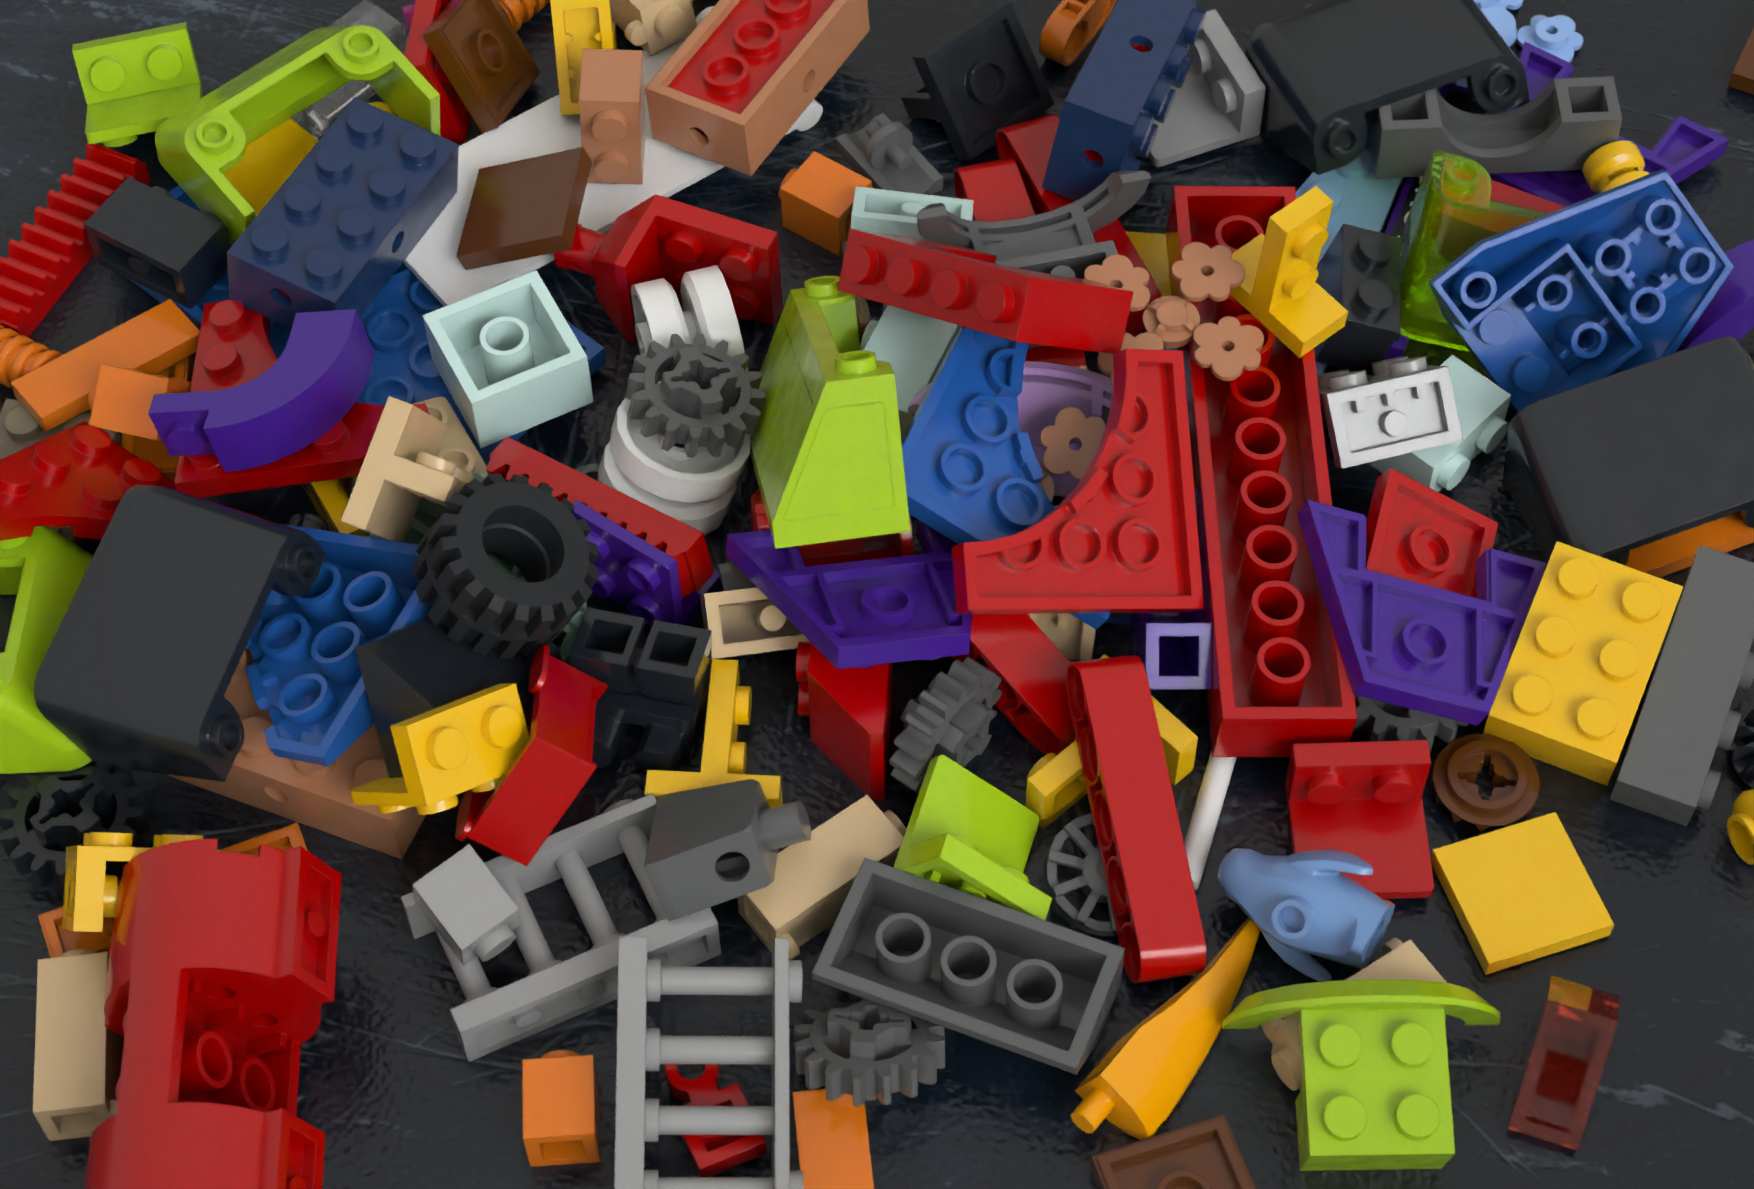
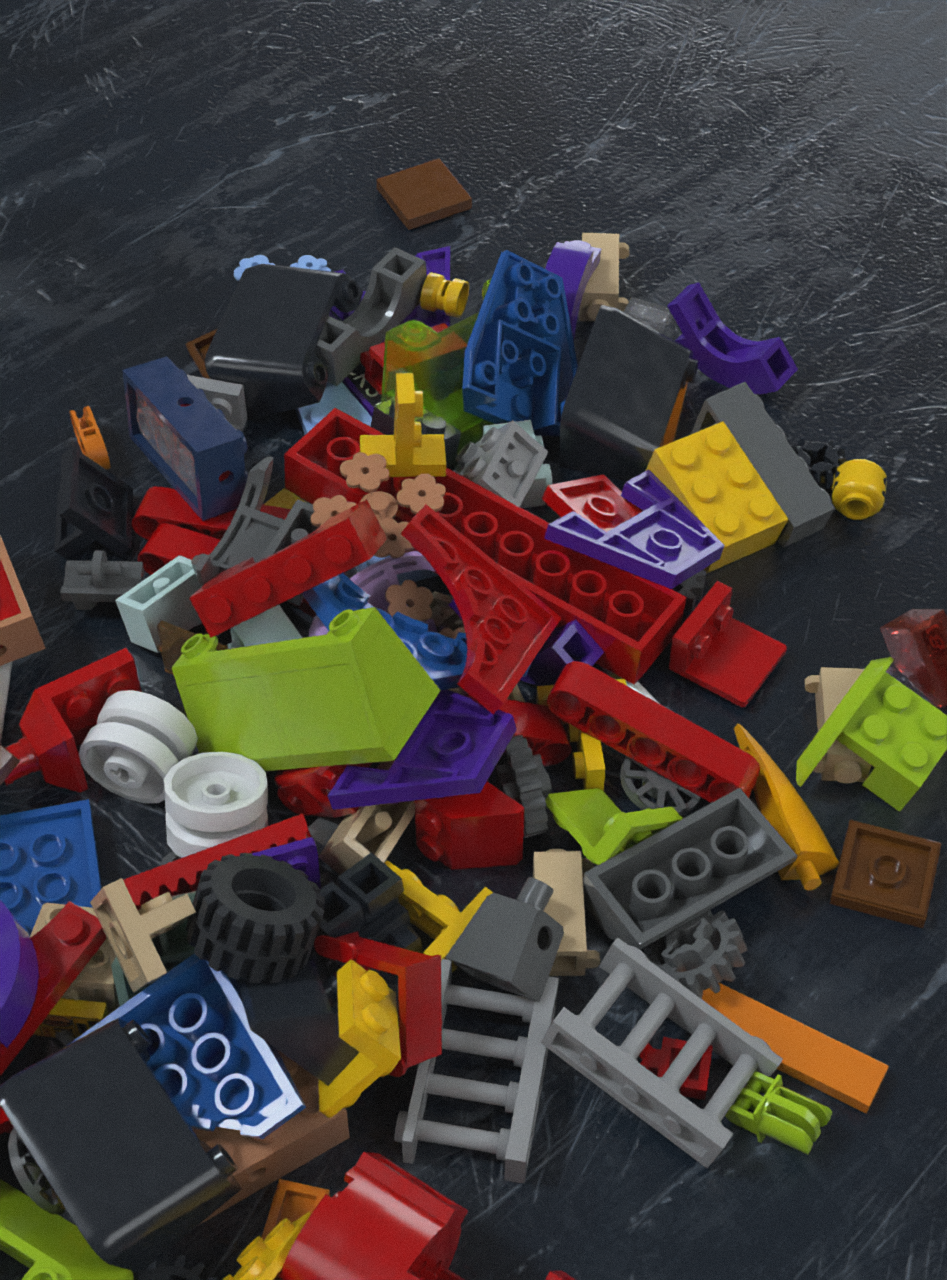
camera: 55 degrees left, 5 degrees down
(468, 907) = (449, 1100): light grey brick -> none
(508, 358) = (64, 843): light aqua brick -> none
(561, 1109) = (608, 1142): orange brick -> none
(695, 395) = (205, 756): dark grey gear -> none
(820, 201) = (93, 629): orange brick -> none
(1308, 906) = (764, 697): medium blue animal -> none
(1509, 771) = (737, 573): reddish brown gear -> none
(1521, 893) = (813, 614): yellow tile -> none

